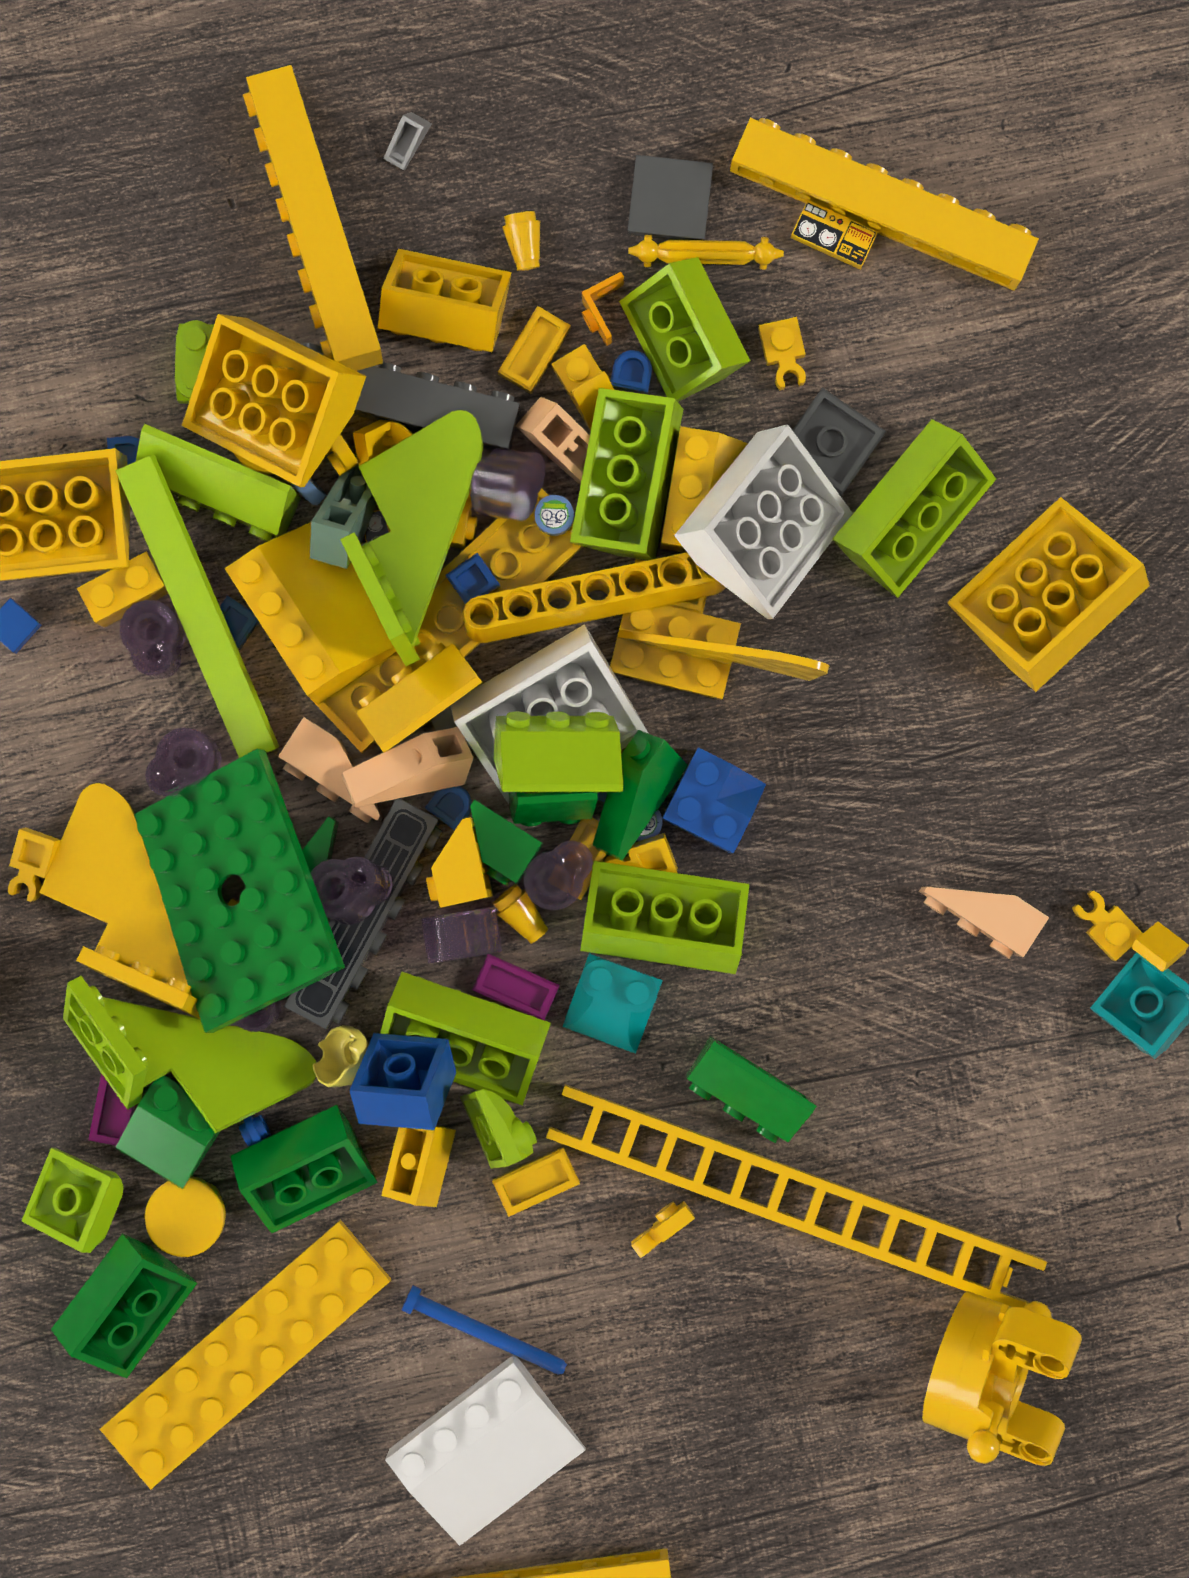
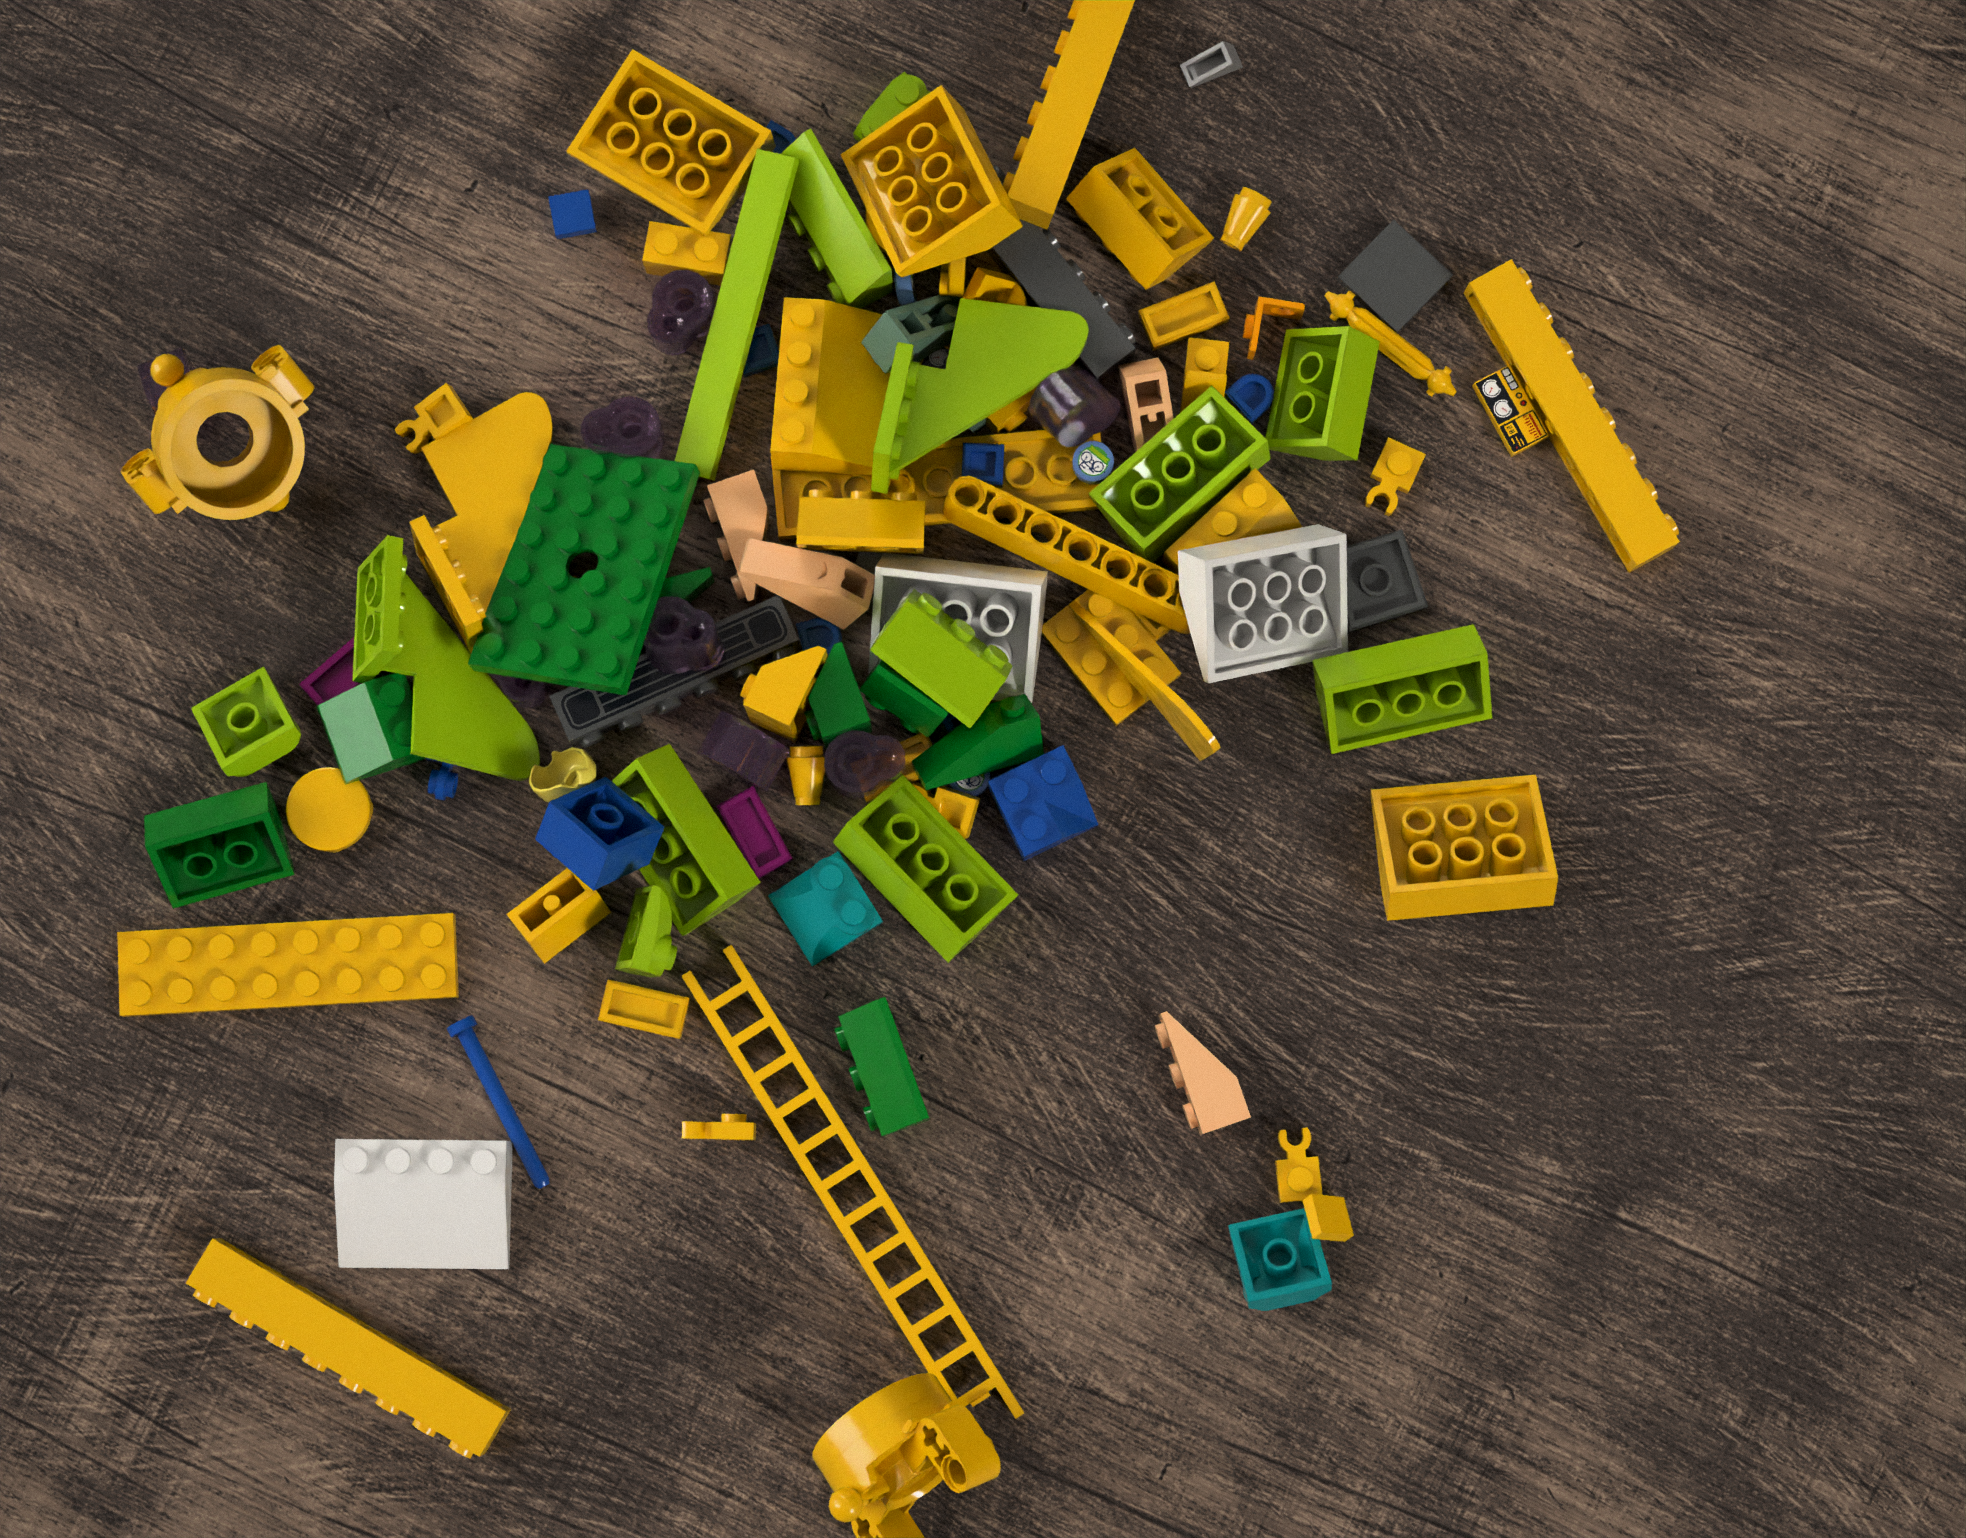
camera: 30 degrees right, 5 degrees down
(302, 1169) = (457, 846): green slope -> none

